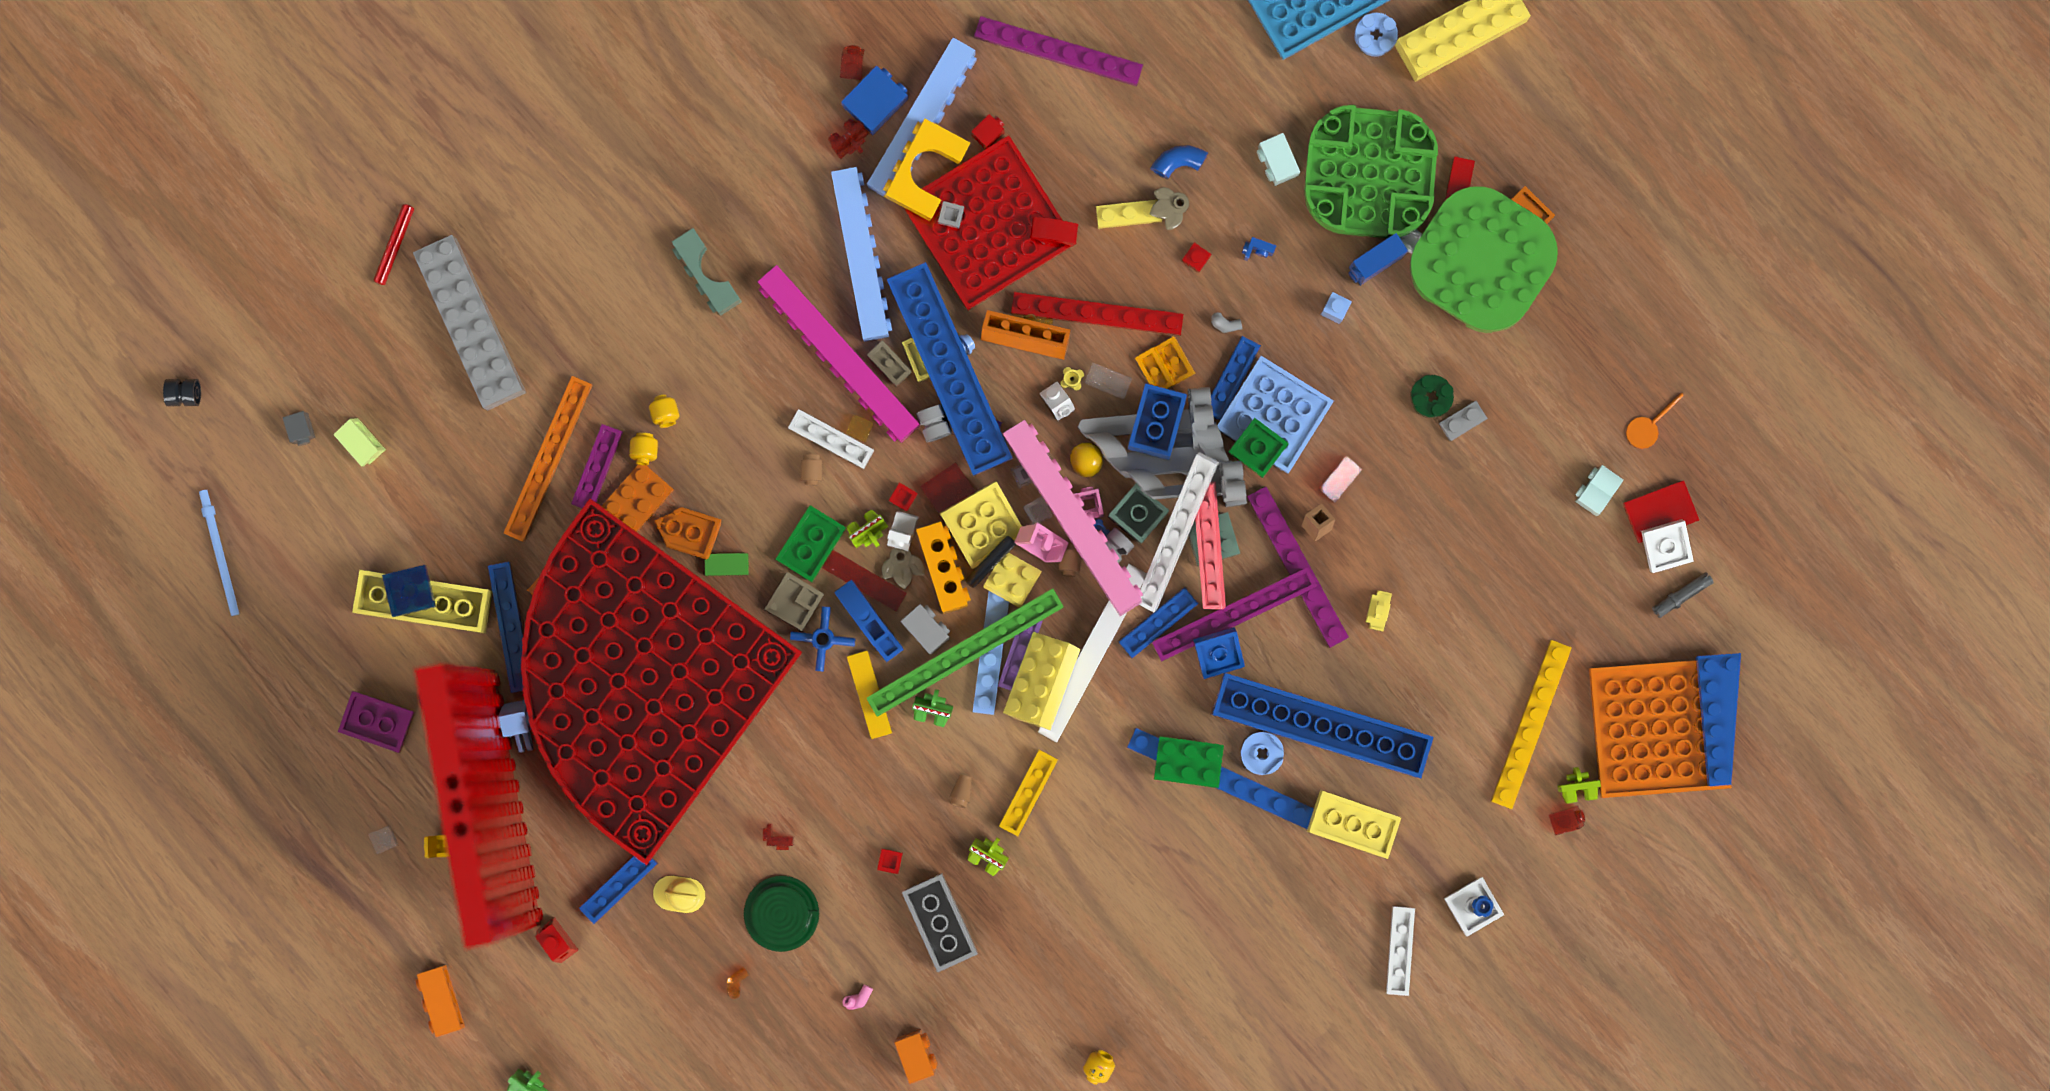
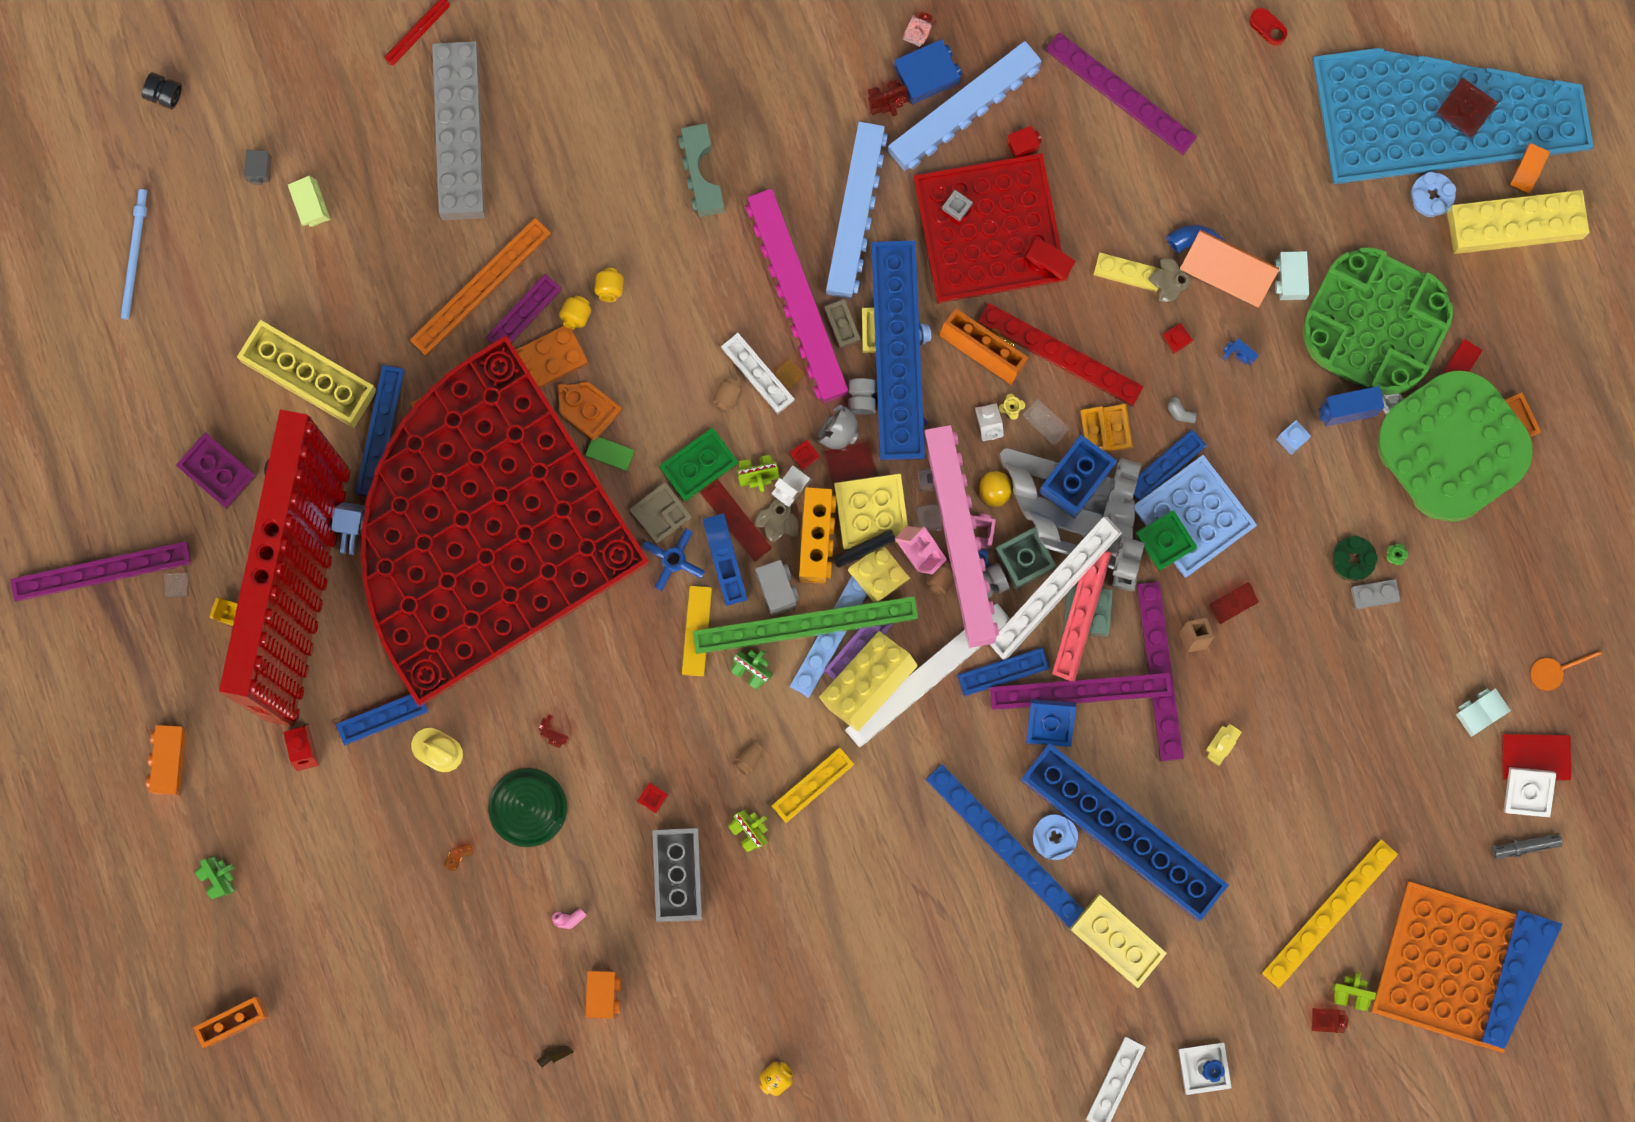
camera: 20 degrees right, 5 degrees down
(309, 854) = (101, 571): none -> magenta plate
(409, 591) = (298, 357): clear blue plate -> none
(902, 187) = (963, 125): yellow arch -> none
(925, 461) = (839, 429): none -> light grey cylinder
(1188, 762) = (980, 816): green plate -> none
(1219, 175) = (1229, 268): none -> tile
(1462, 376) = (1397, 560): none -> bright green plate

